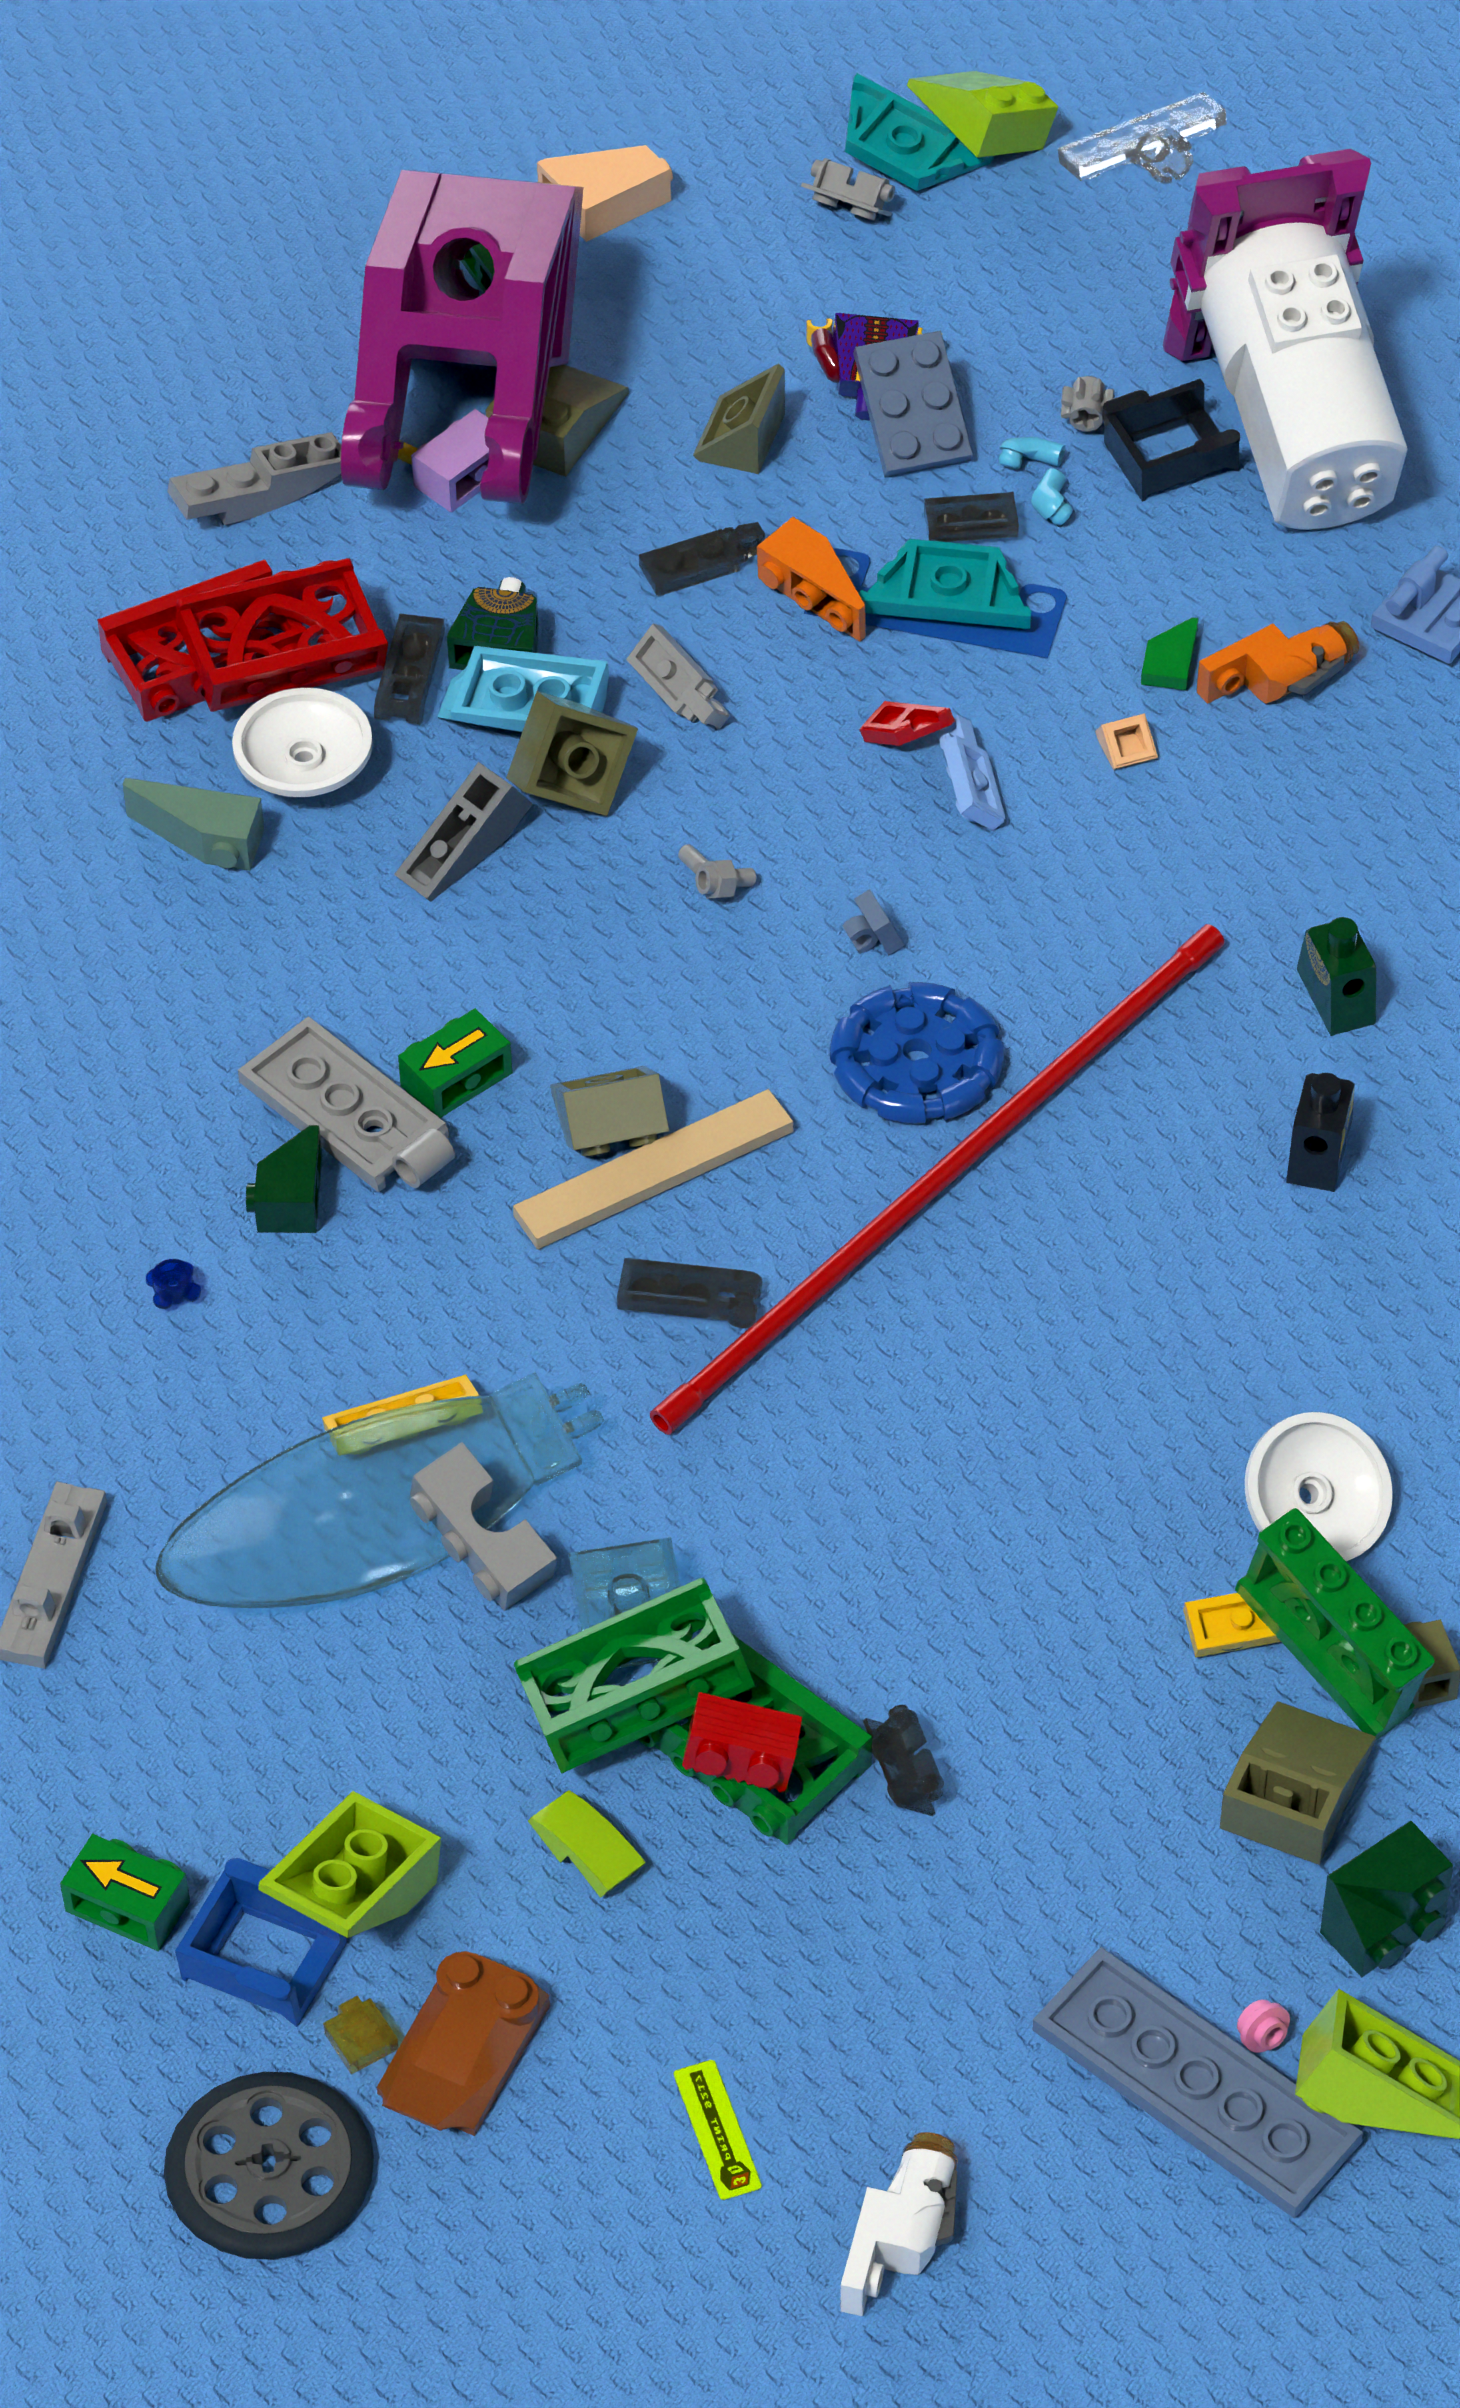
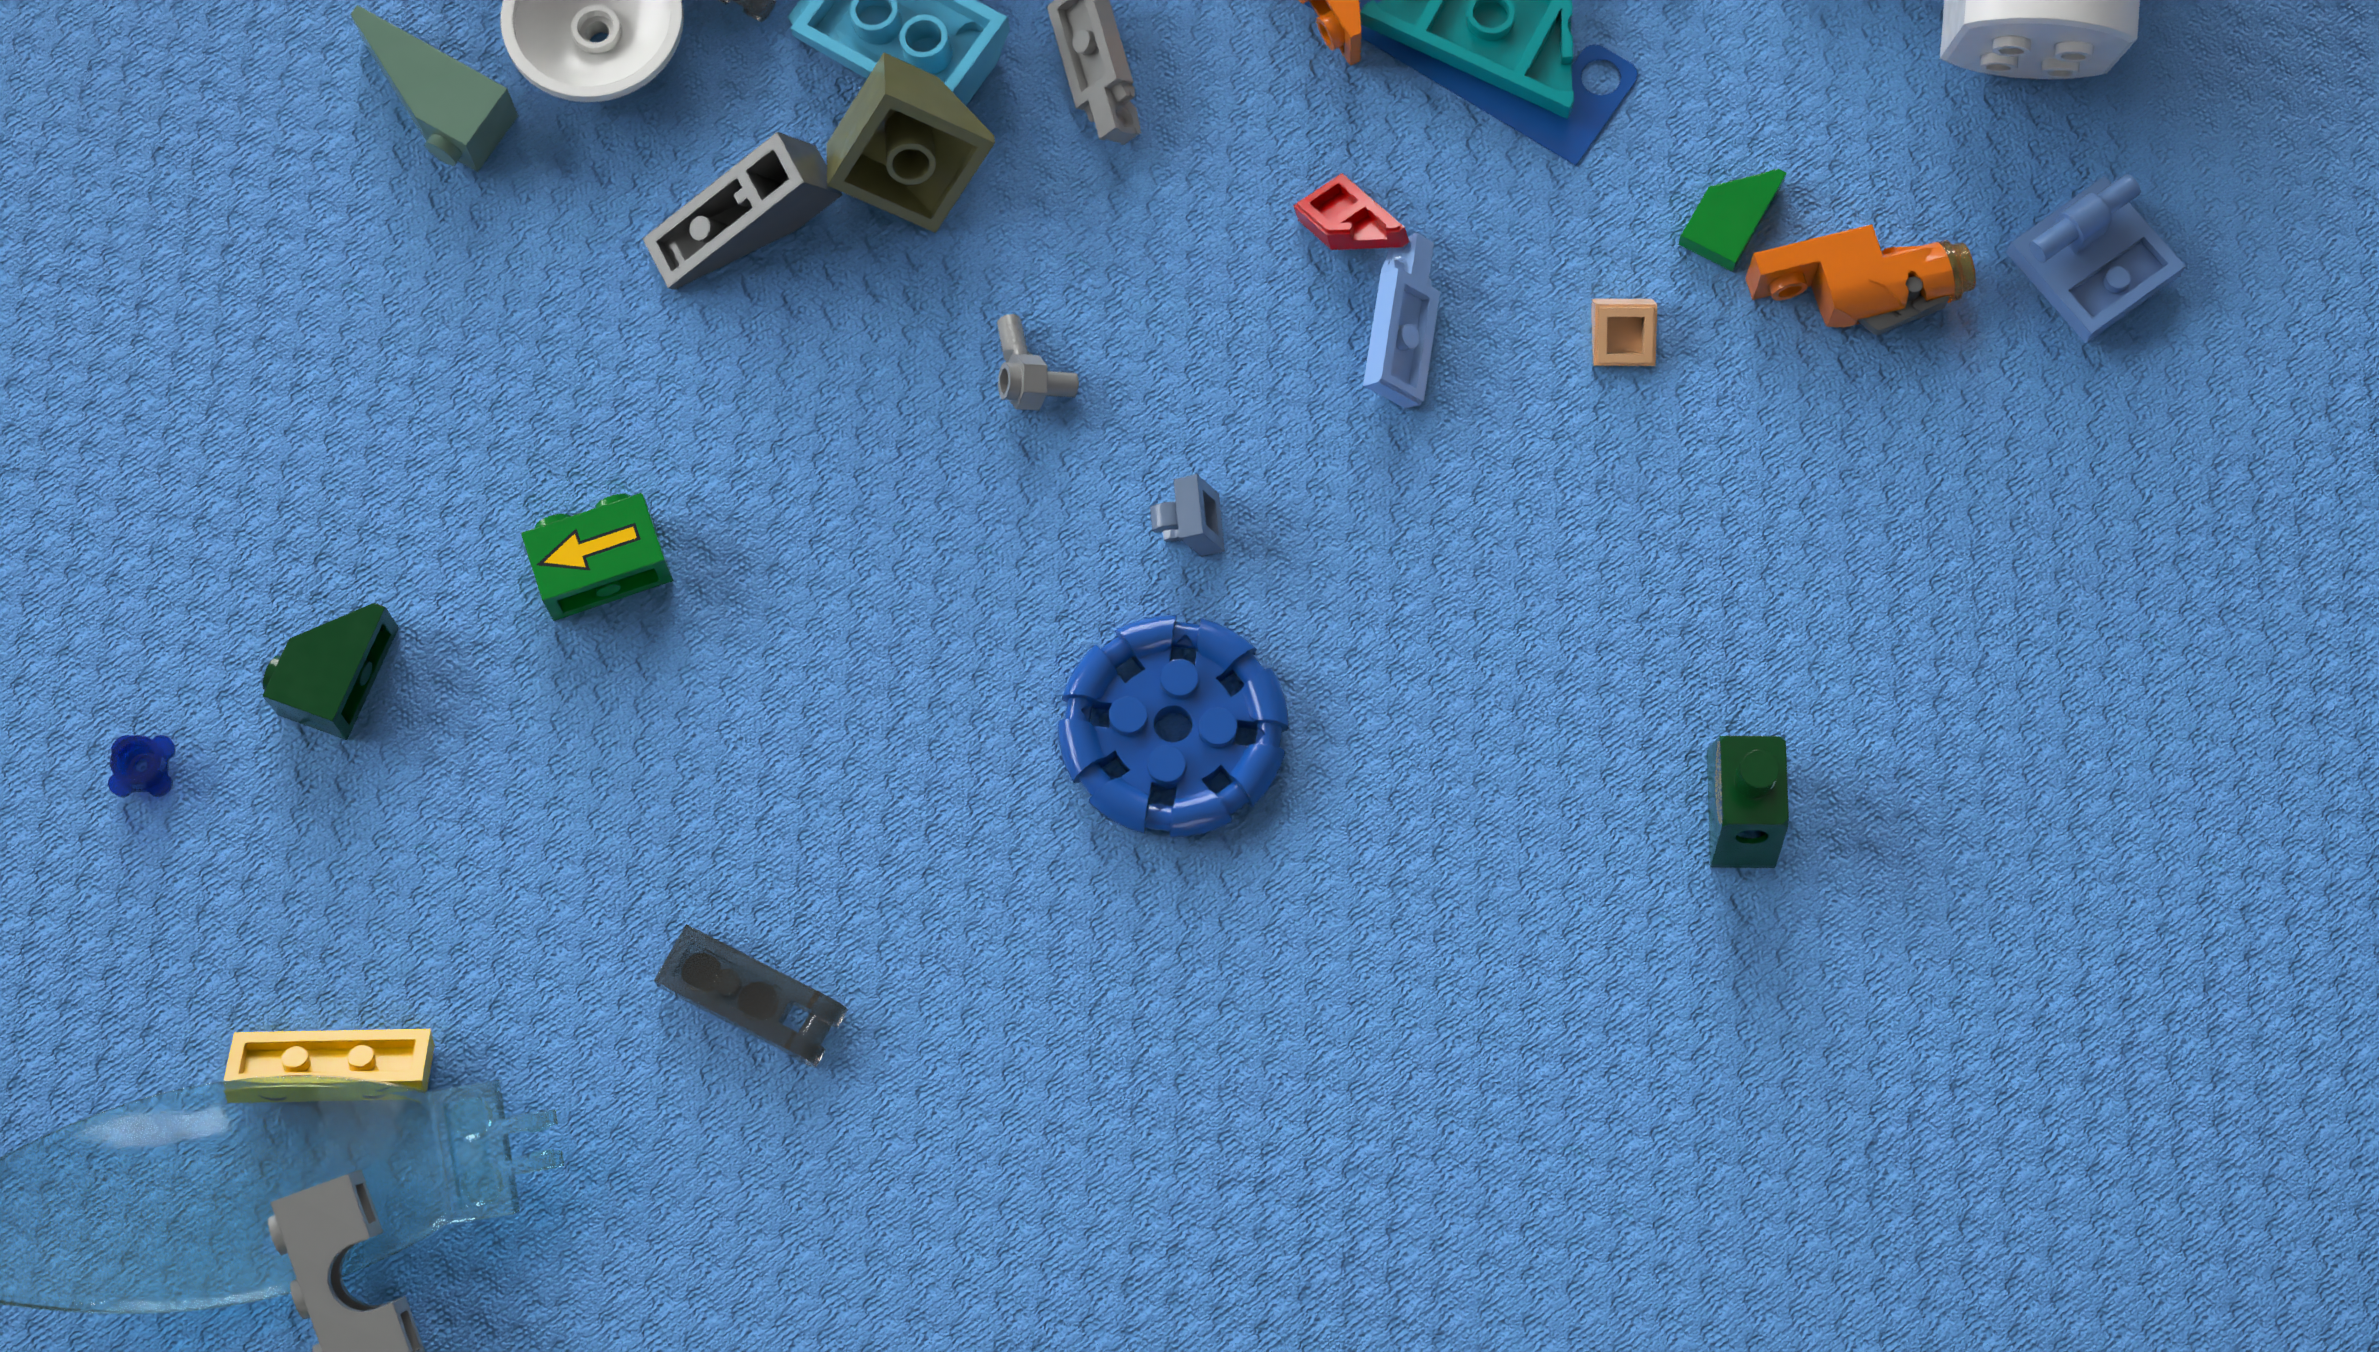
camera: 20 degrees right, 20 degrees up
(324, 1083) = (443, 555): light grey hinge -> none
(611, 1109) = (758, 685): olive slope -> none
(652, 1169) = (782, 789): tan tile -> none
(690, 1396) = (694, 1152): red piece -> none
(1322, 1112) = (1627, 1036): black torso -> none

